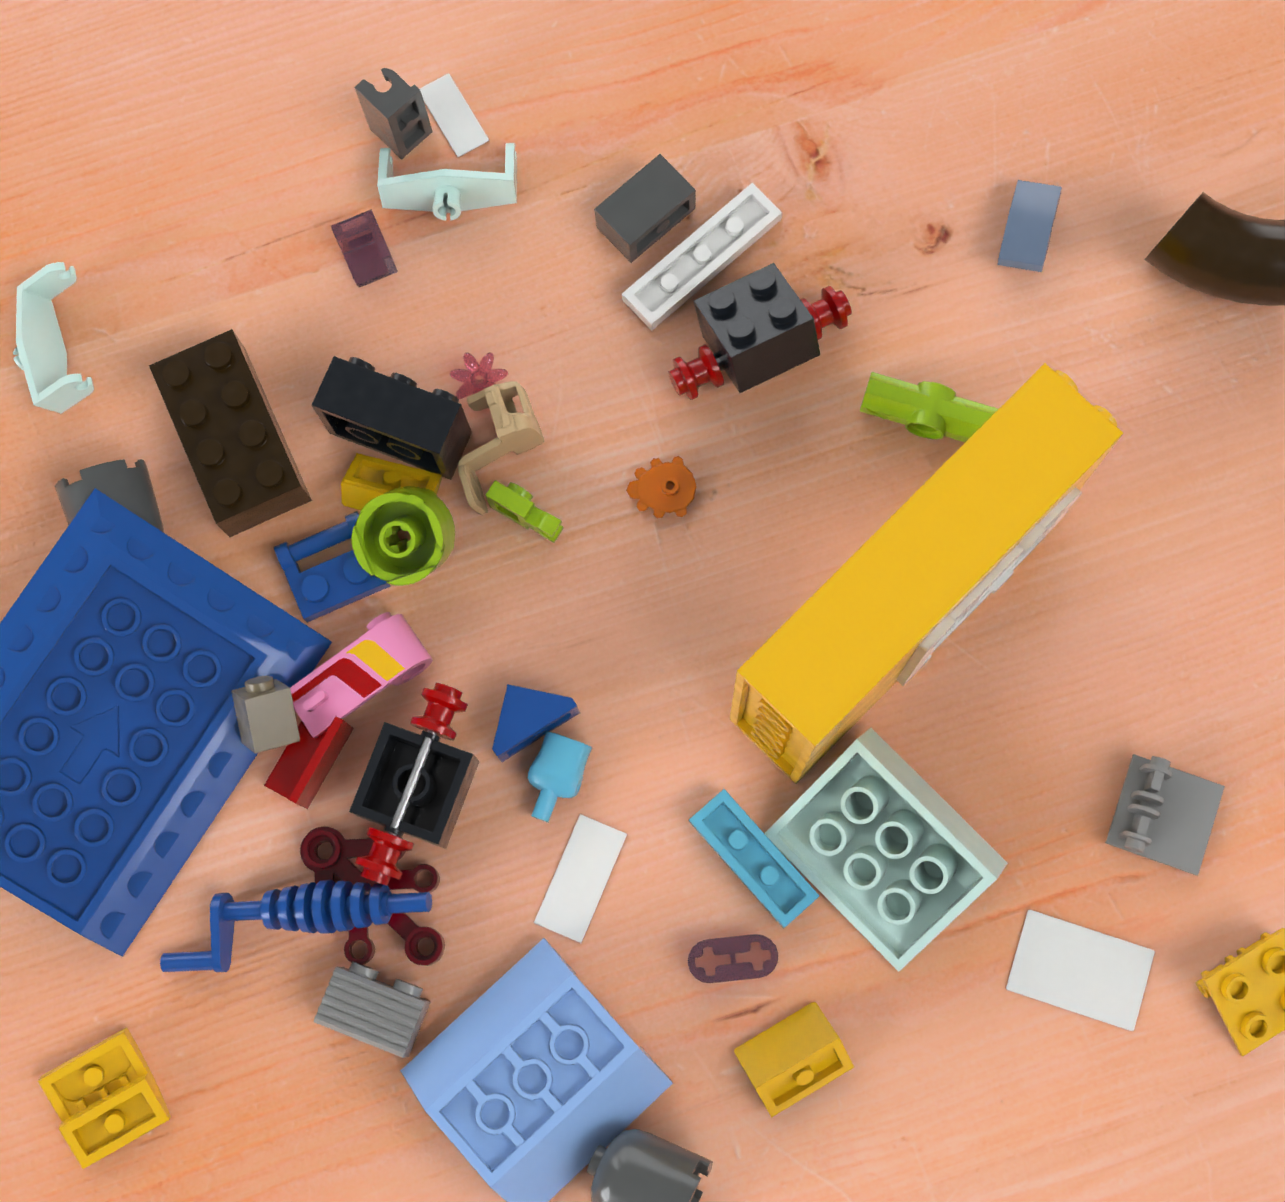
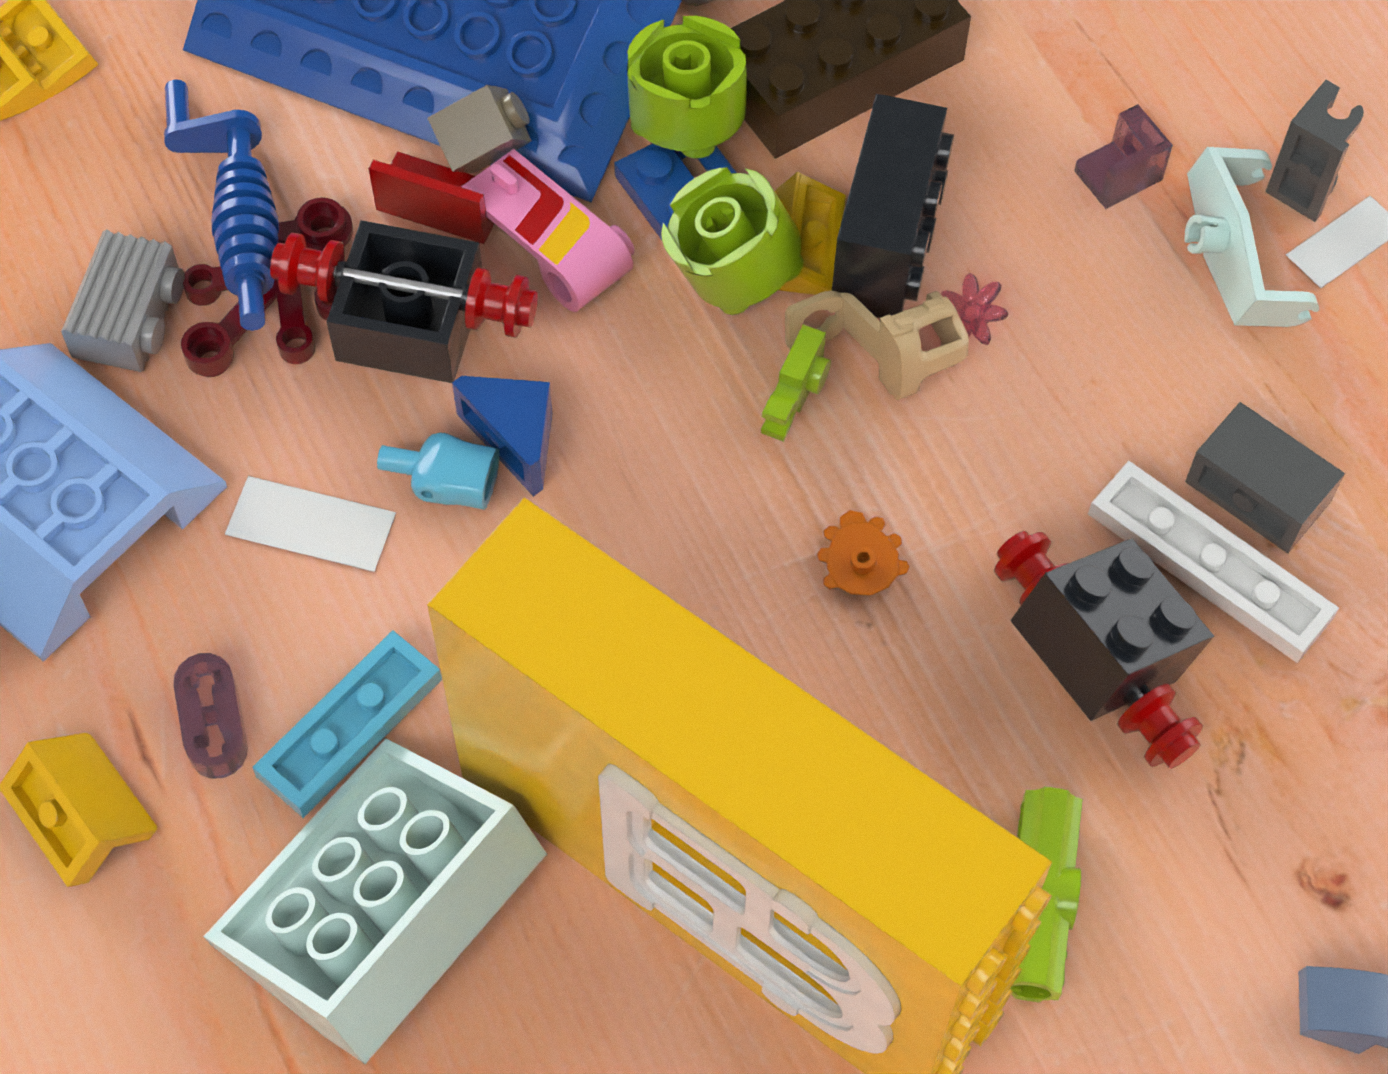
camera: 75 degrees right, 15 degrees down
(281, 564) = (687, 85): none -> lime brick

